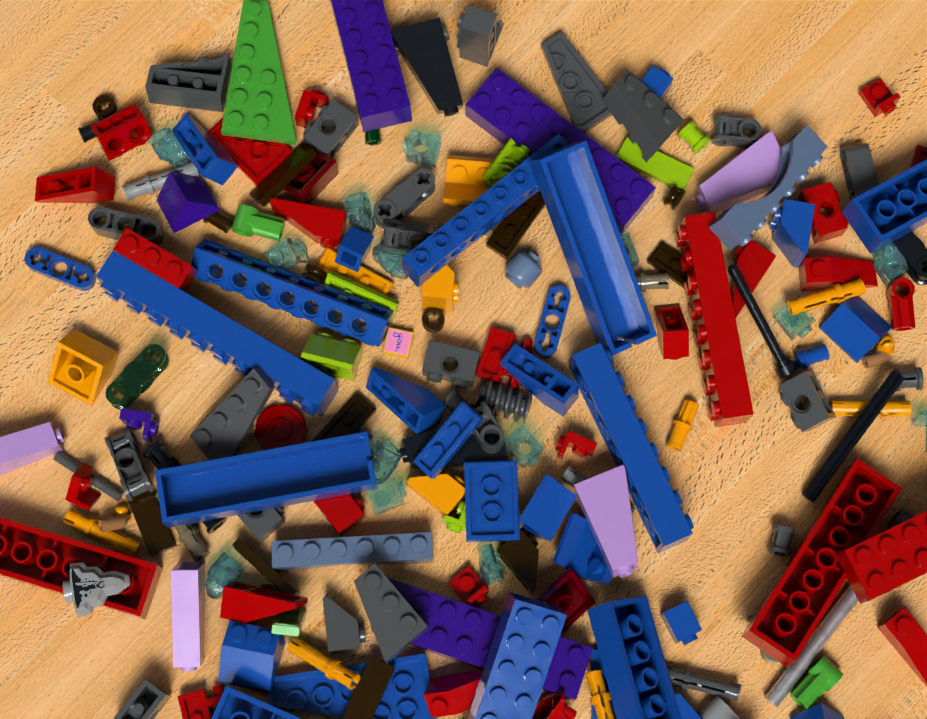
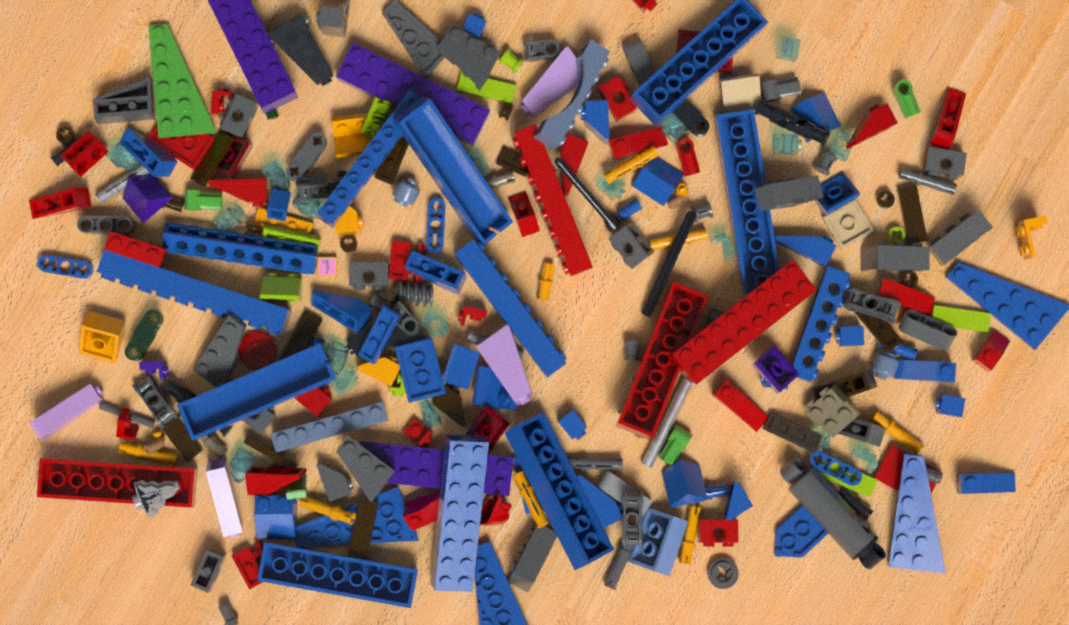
camera: 20 degrees left, 10 degrees up
(425, 158) = (319, 115): clear light blue brick -> none

